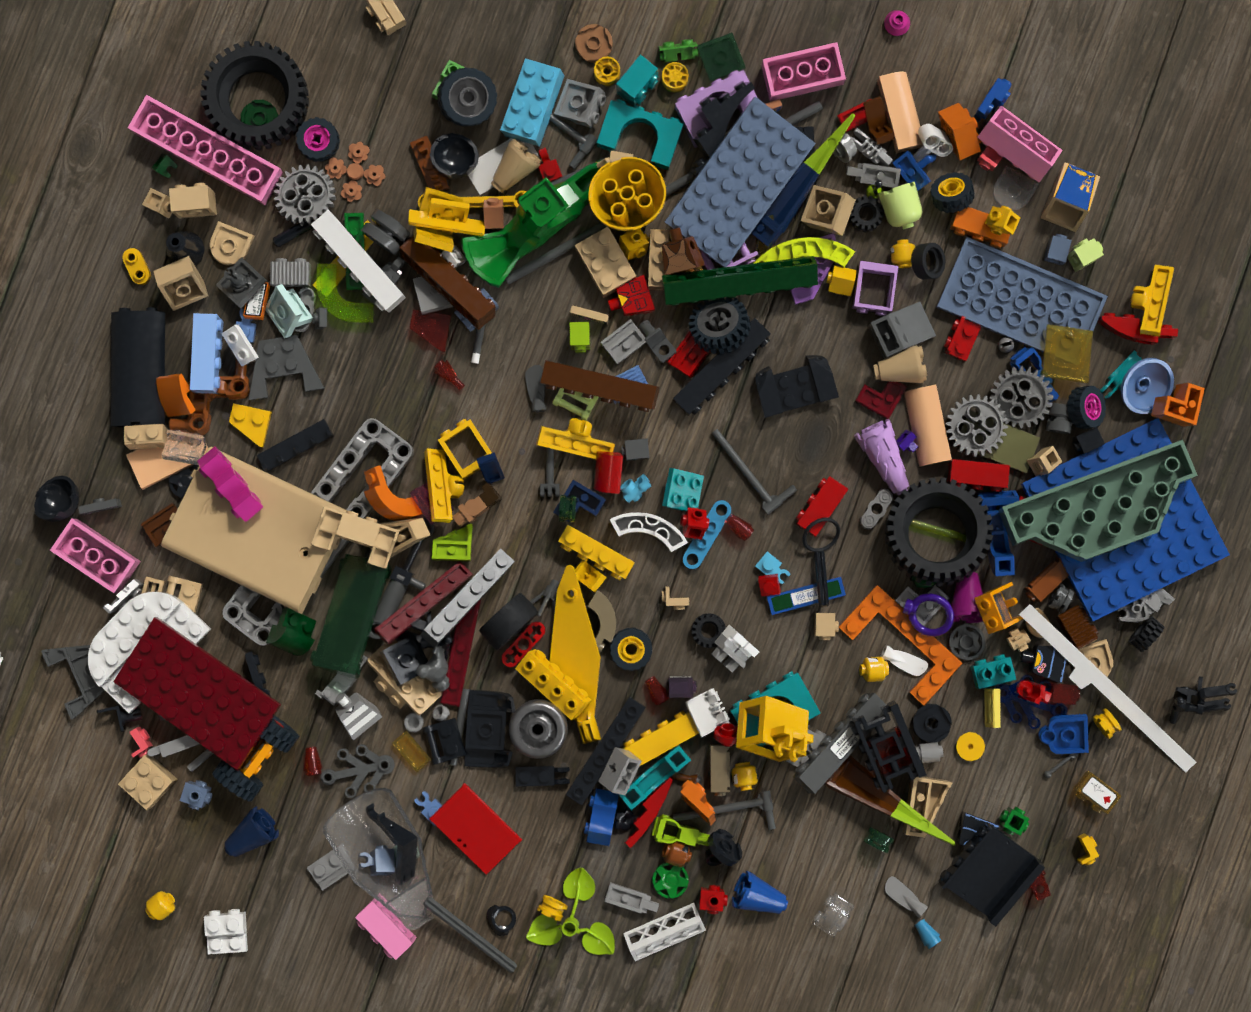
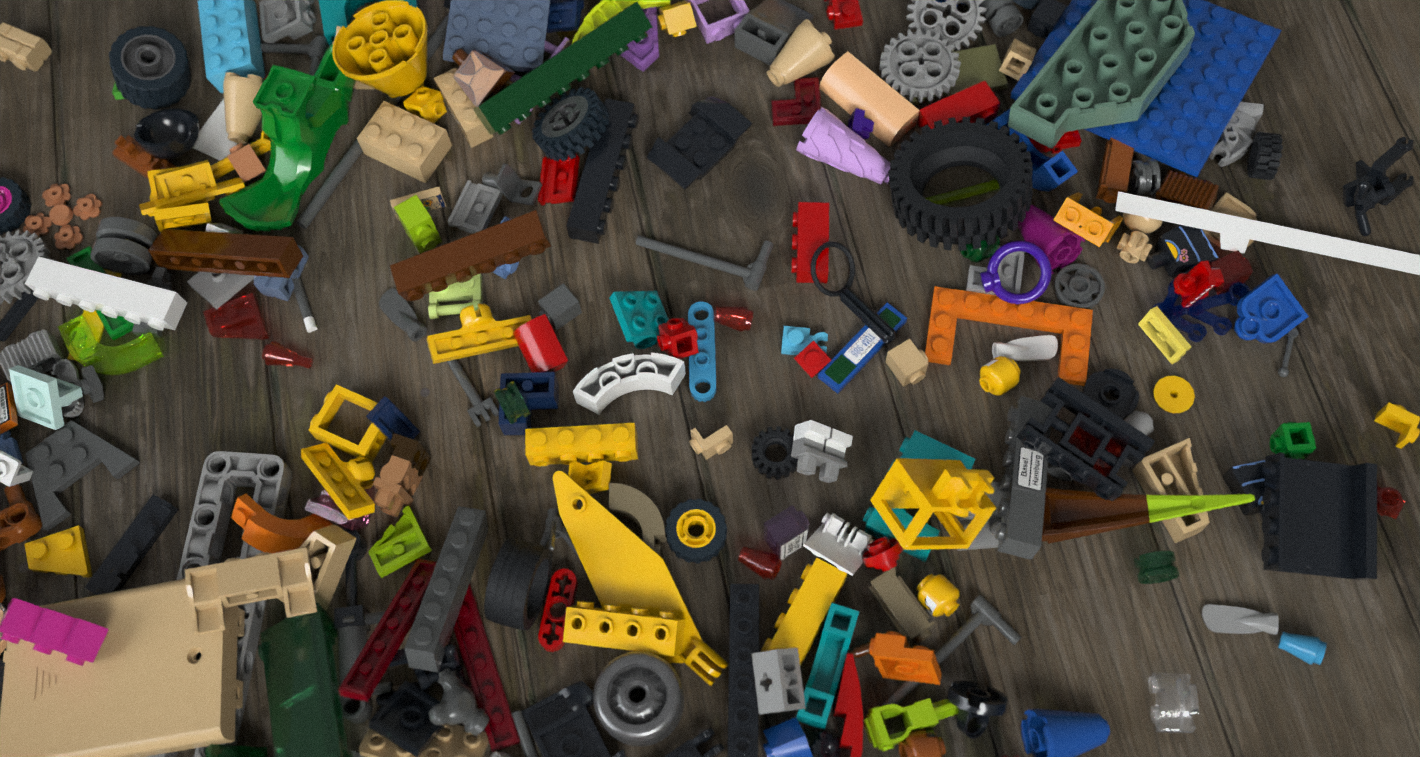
camera: 30 degrees left, 20 degrees down
(633, 298) = (459, 159): red torso -> none
(633, 490) = (583, 352): medium azure plate -> none
(870, 519) = (875, 225): light grey piece -> none
(993, 672) = (1135, 295): teal brick -> none
(1096, 792) = (1355, 354): brick -> none
(1106, 723) = (1302, 272): yellow wheel -> none

